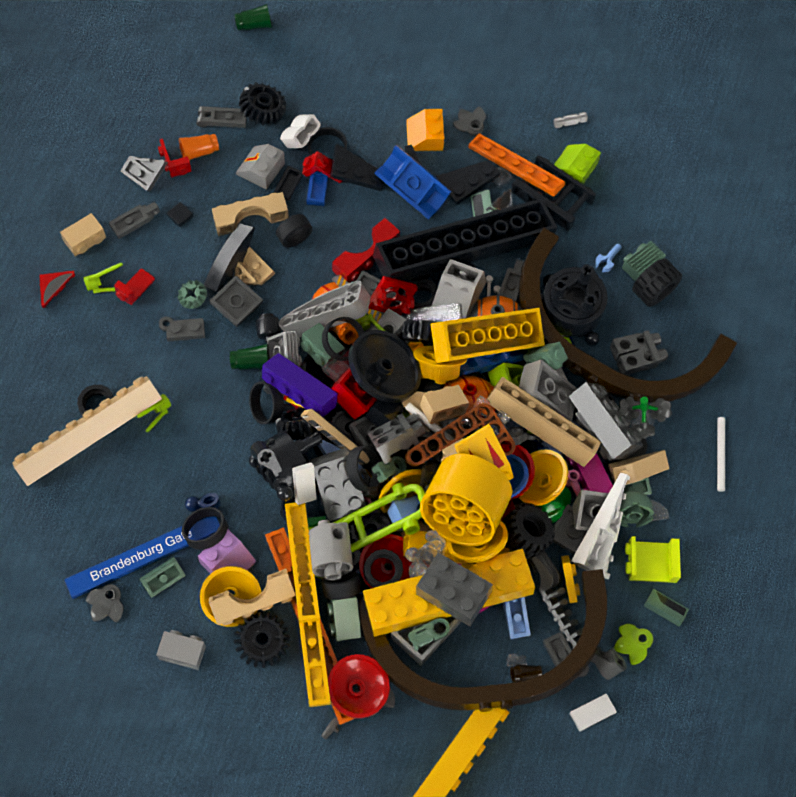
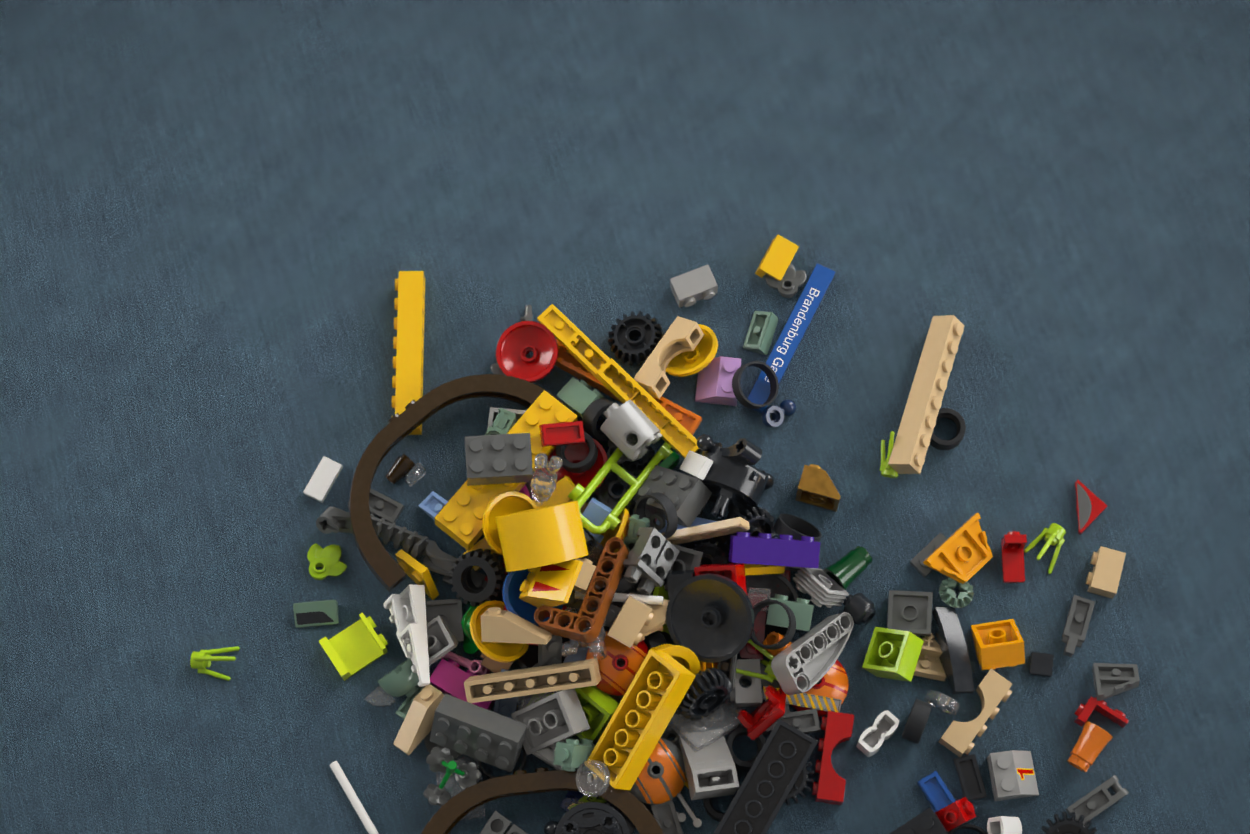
camera: 150 degrees right, 5 degrees up
(99, 623) = (777, 258): none -> yellow panel
(164, 311) = (962, 552): none -> light orange wing
(196, 243) = (998, 644): none -> light orange slope
(226, 422) = (817, 488): none -> pearl gold slope
(266, 231) = (942, 702): none -> clear piece
(273, 278) = (893, 654): none -> lime brick
(326, 242) = (881, 730): none -> white brick
(387, 581) = (562, 433): none -> red tile
(537, 458) = (508, 627): none -> tan slope
(541, 326) = (584, 778): none -> clear piece
(779, 632) = (203, 659): none -> lime plant

